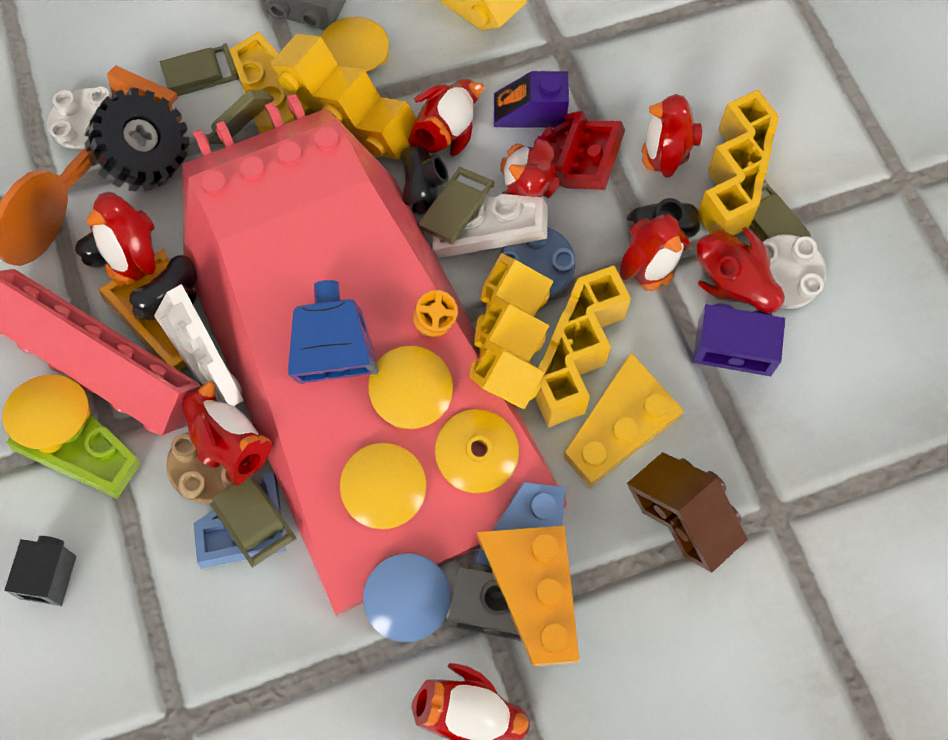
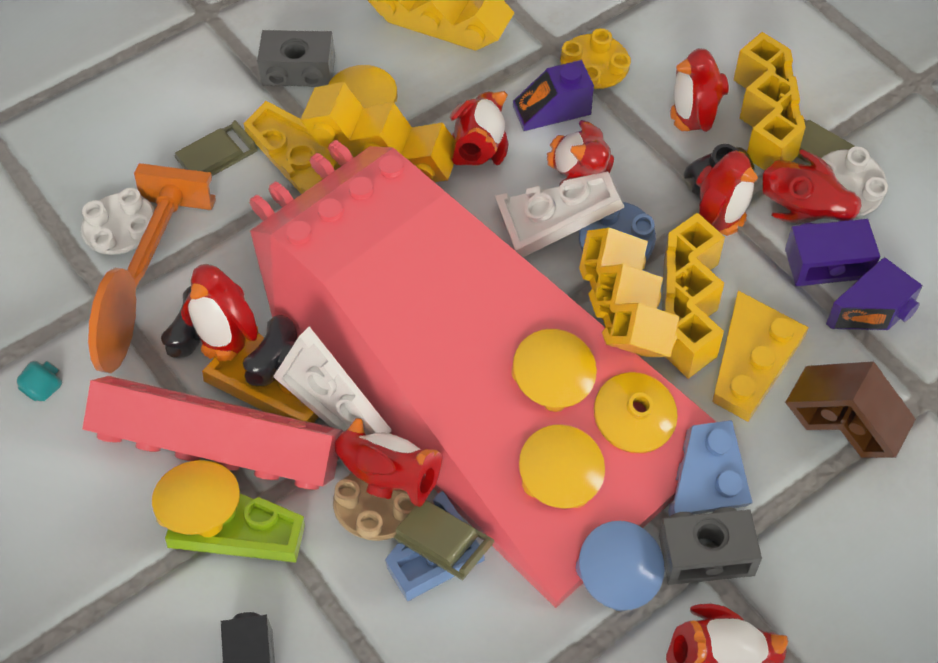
camera: 15 degrees left, 10 degrees down
(120, 155) = (181, 241): black bush -> none
(241, 113) = (285, 171): olive piece -> none
(329, 338) = (469, 340): blue torso -> none
(422, 177) = (480, 189): black piece -> none
(436, 305) = (558, 285): light orange wheel -> none
(455, 206) = (523, 204): olive piece -> none
(536, 585) = (748, 513): light orange wing -> none
(584, 150) = (624, 125): red slope -> none
(593, 71) = (601, 55): none -> yellow dish
(763, 402) = (876, 300): none -> dark purple slope

